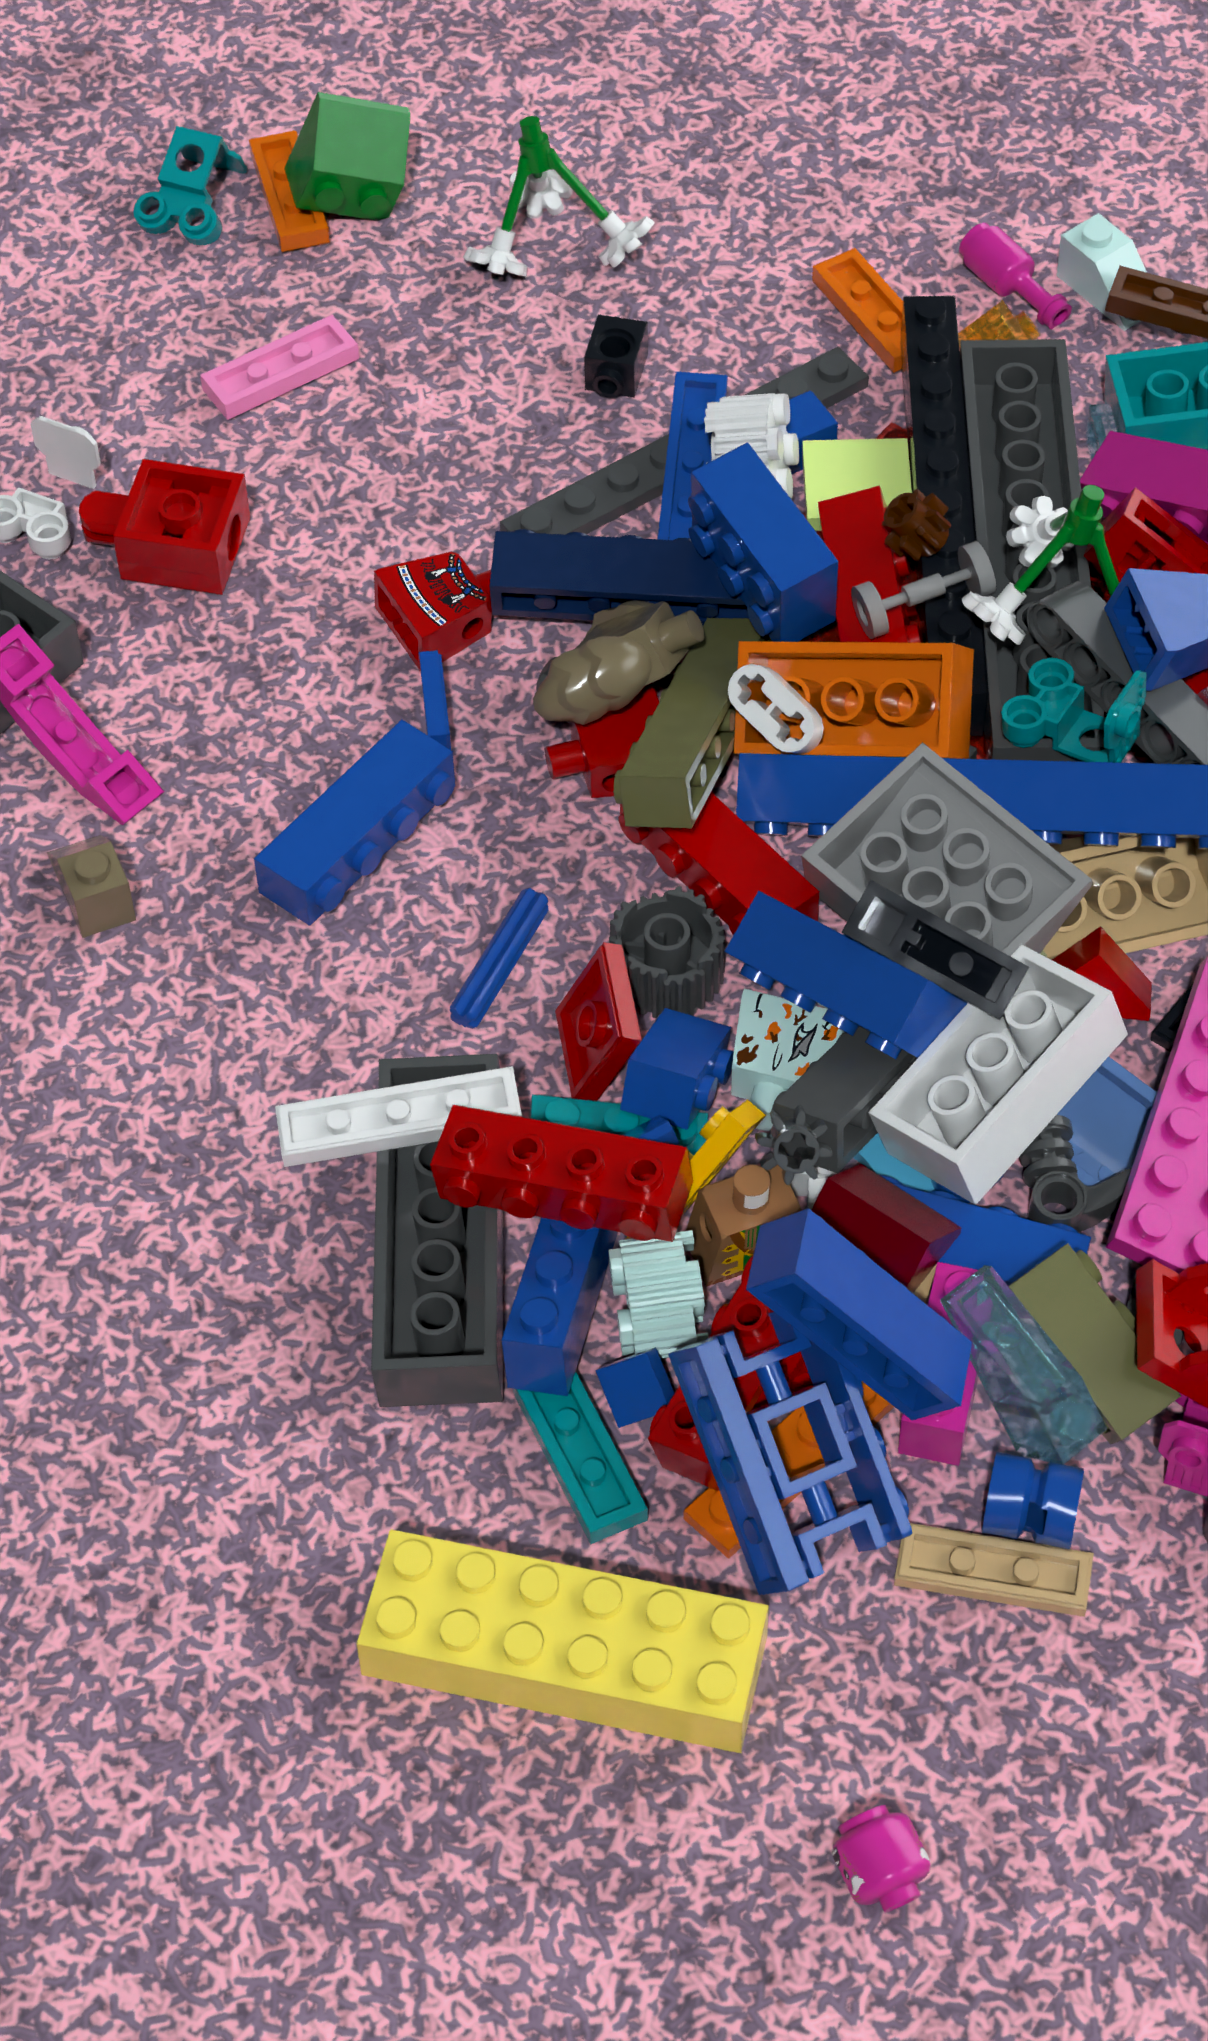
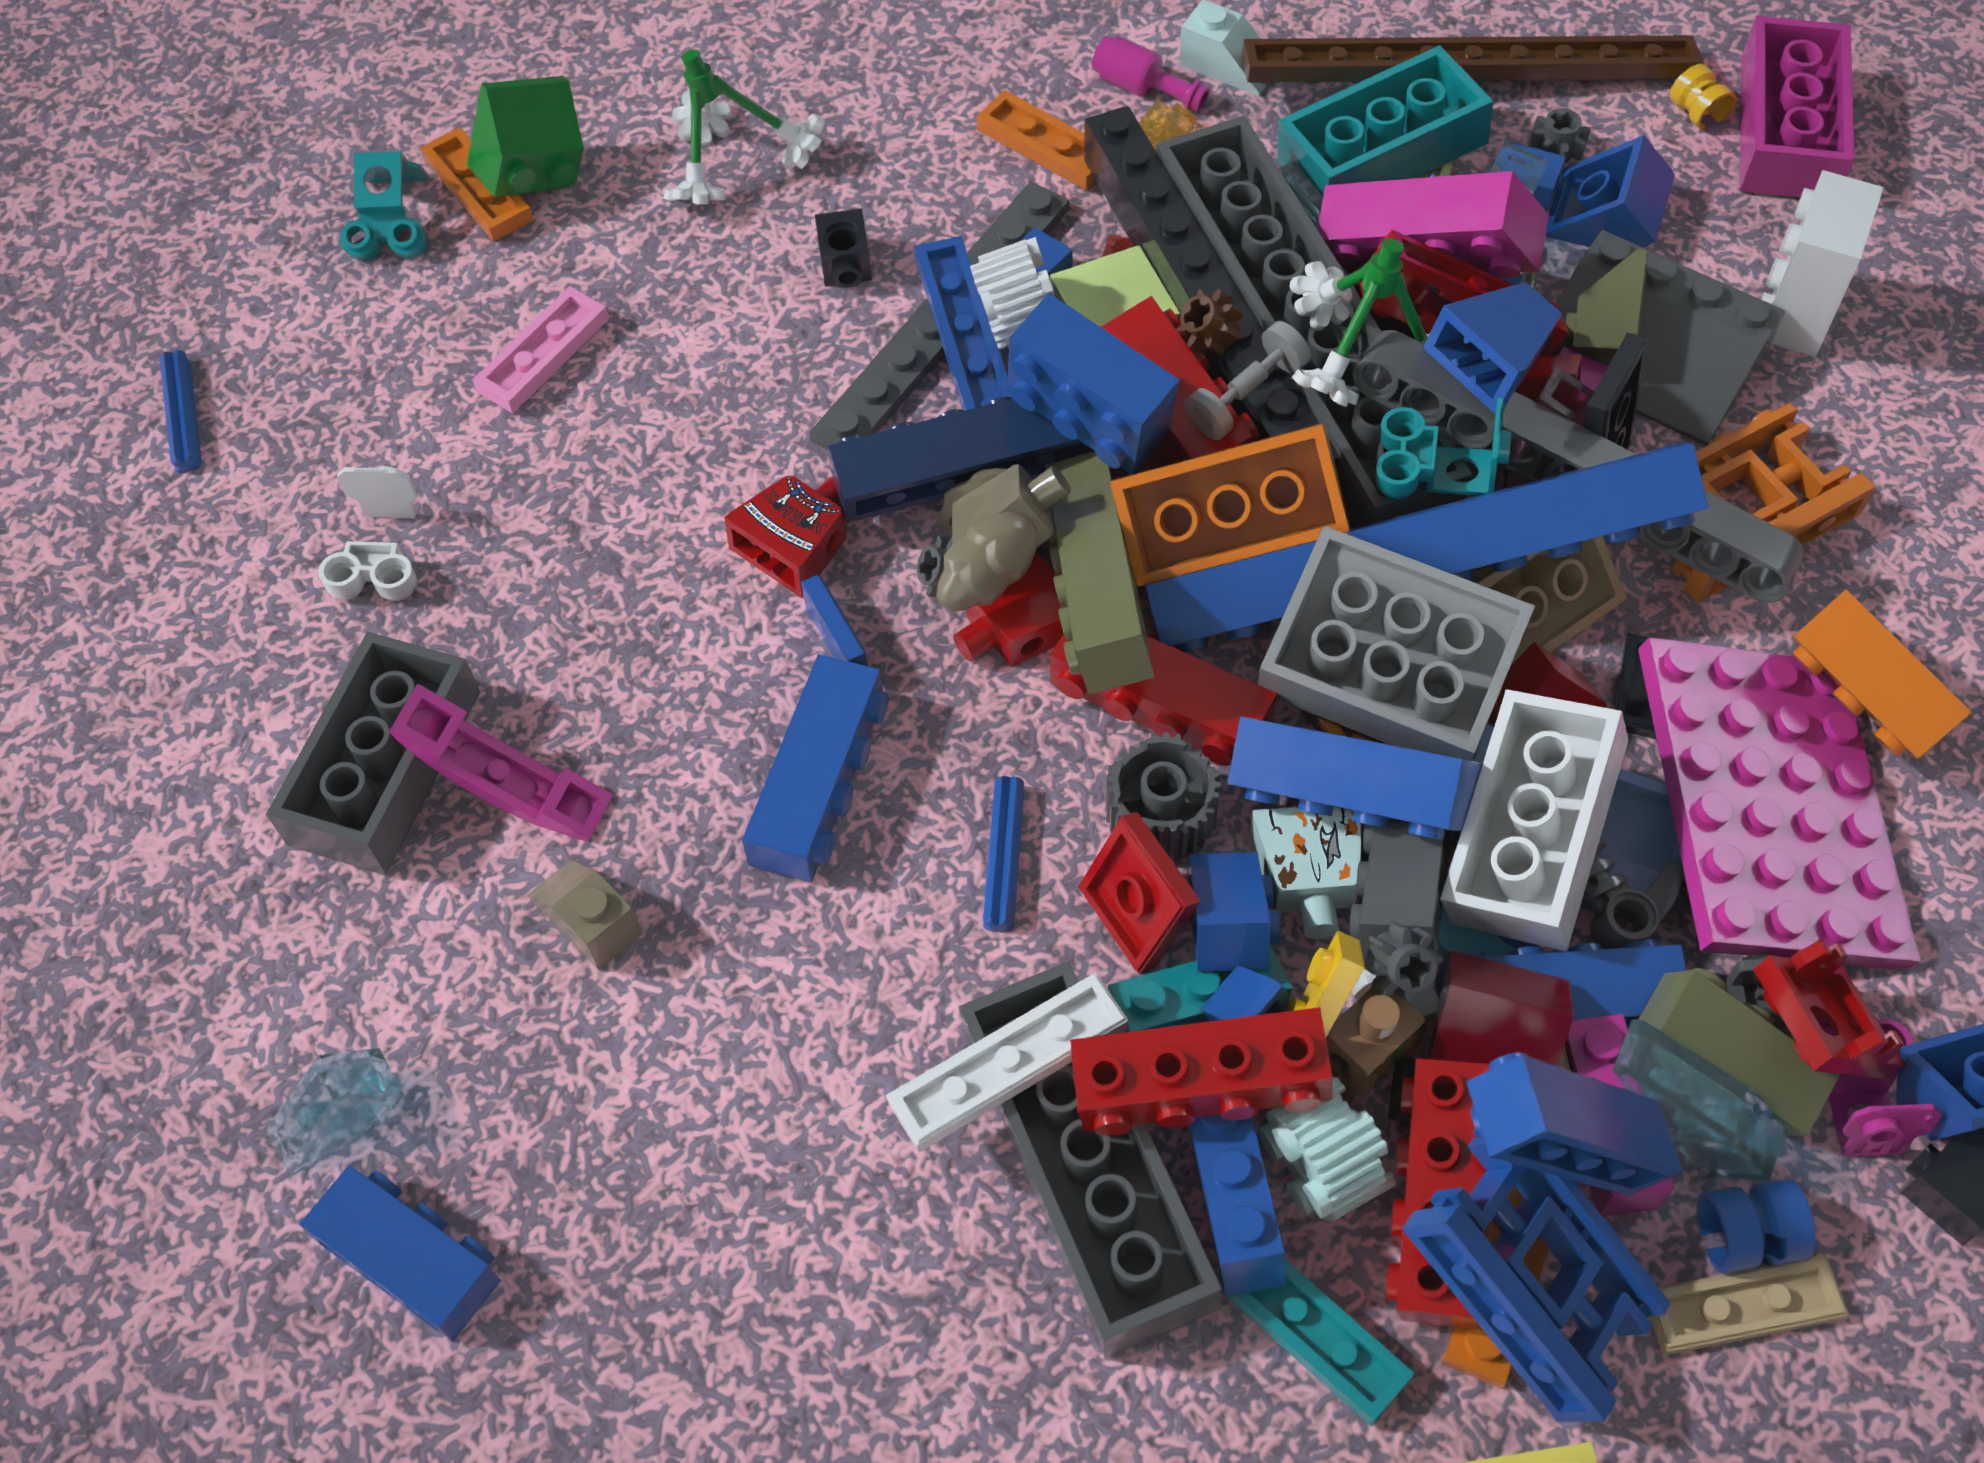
camera: 20 degrees left, 5 degrees up
(162, 505) = (503, 510): red brick -> none
(635, 1386) = (1345, 1250): blue tile -> none
(784, 700) = (1175, 523): white beam -> none
(935, 950) = (1440, 724): black slope -> none

